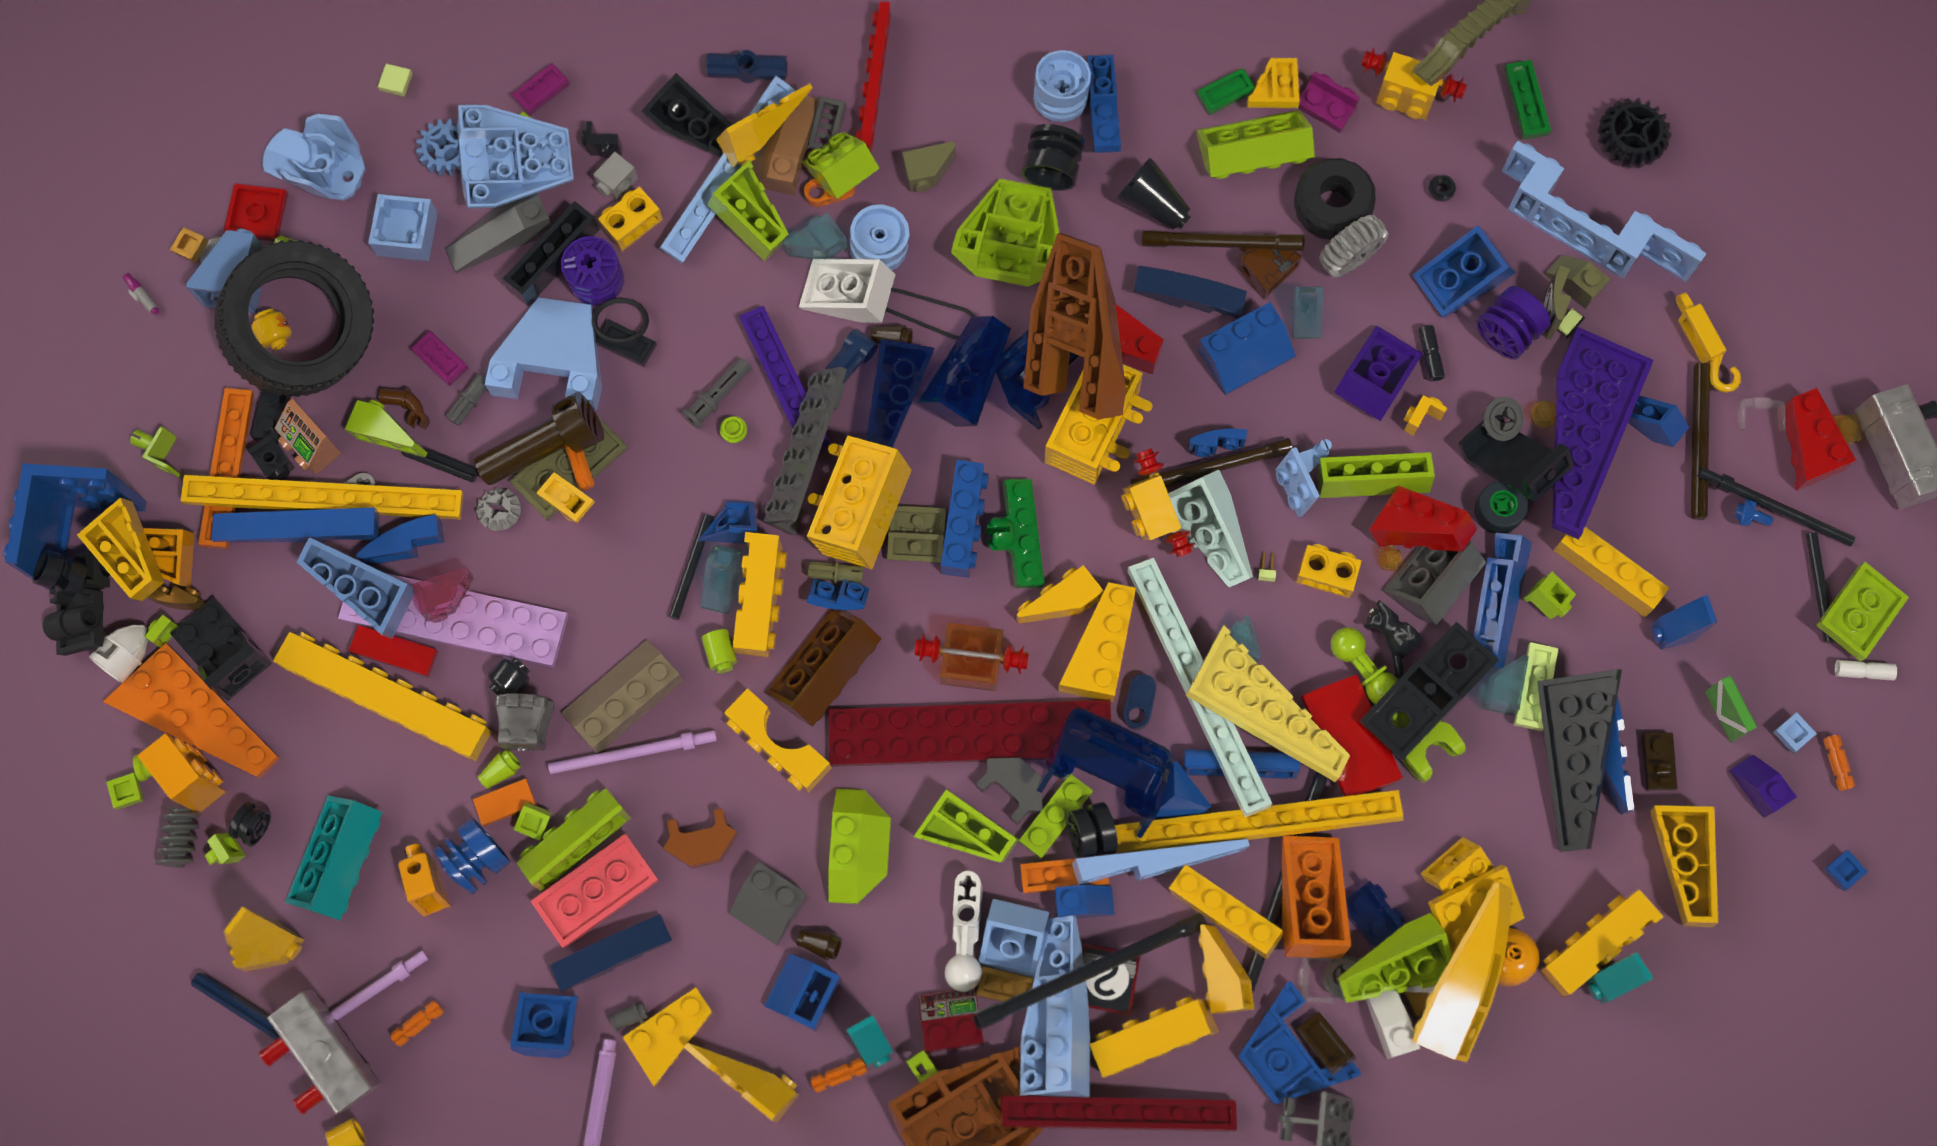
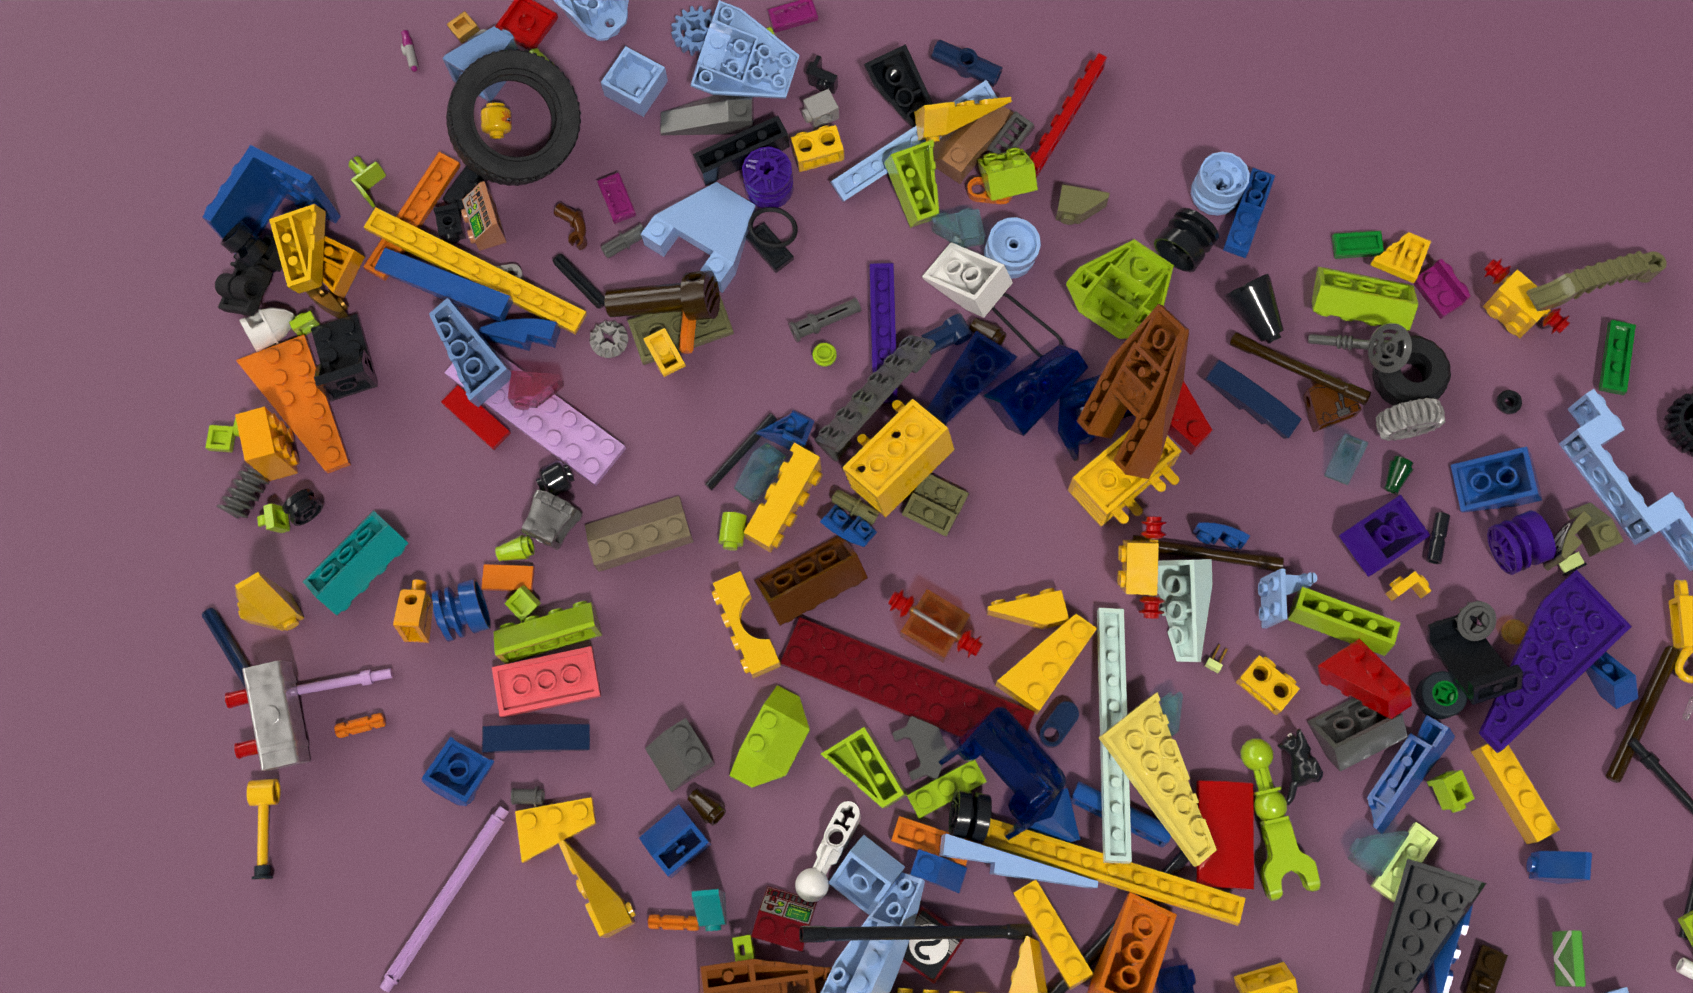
camera: 25 degrees right, 0 degrees up
(376, 426) = (543, 232): lime slope -> none
(383, 696) = (450, 450): yellow brick -> none
(686, 741) = (674, 592): lavender bar -> none
(701, 846) = (648, 684): dark orange piece -> none
(962, 519) = (978, 508): blue brick -> none
(1002, 985) = (840, 910): pearl gold plate -> none
(1019, 533) = (1020, 540): green plate -> none
(1246, 348) = (1280, 467): blue slope -> none
(1294, 185) = (1381, 346): none -> dark grey dish
(1365, 305) = (1398, 473): none -> dark green cone
(1390, 558) = (1325, 697): clear yellow plate -> none
(1429, 691) = (1309, 825): black bracket -> none
(1746, 513) = (1658, 794): blue plate -> none

